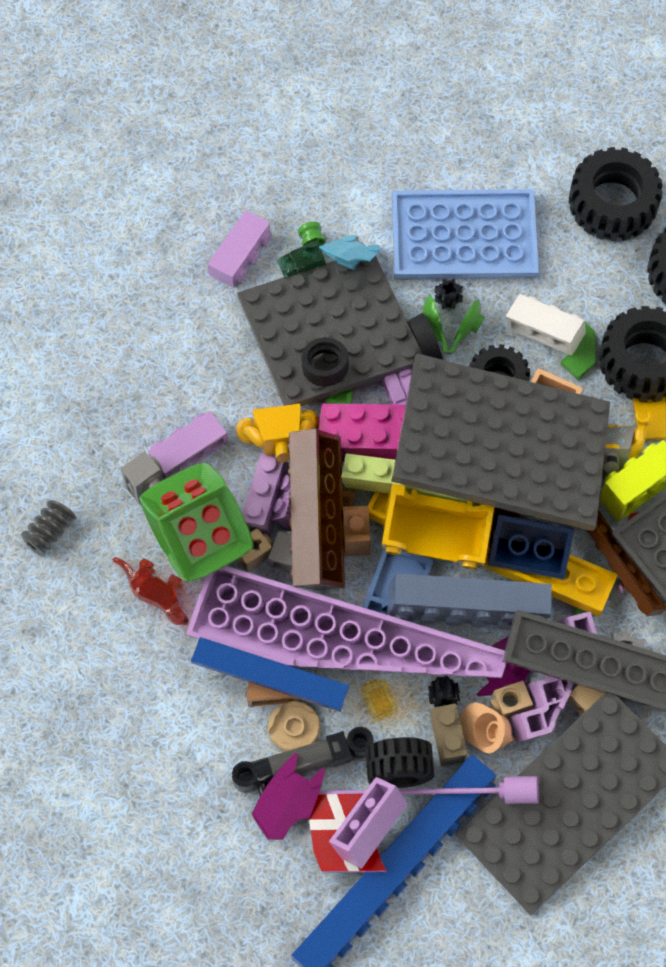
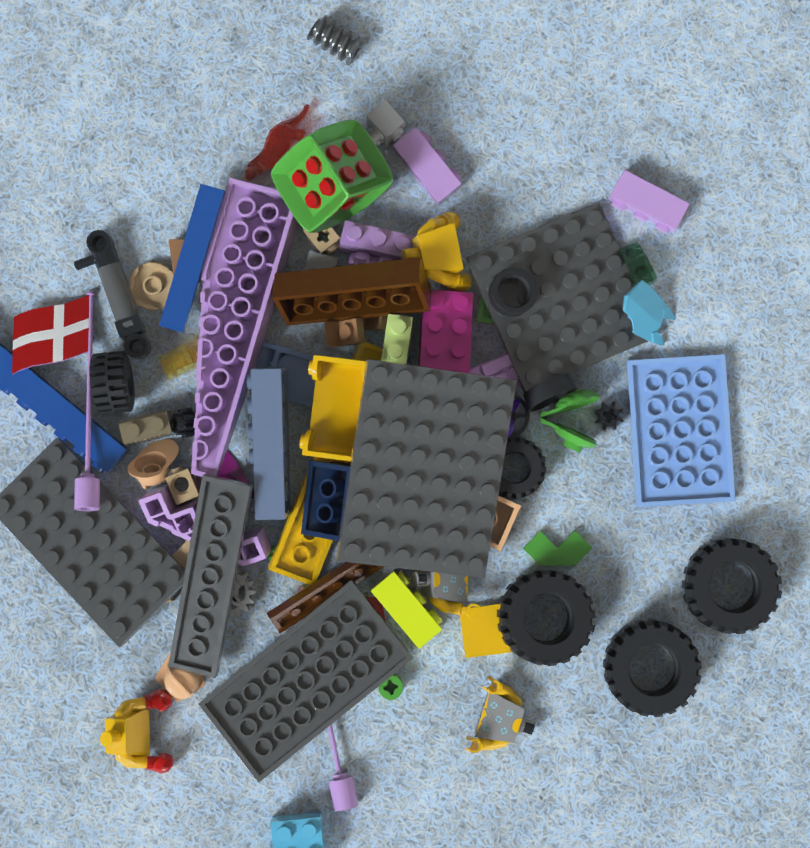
camera: 90 degrees right, 20 degrees up
(286, 800) = (78, 281): magenta shield -> none
(310, 233) = (668, 274): bright green wheel -> none
(368, 822) = (49, 354): lavender brick -> none
(546, 324) = (577, 515): white brick -> none

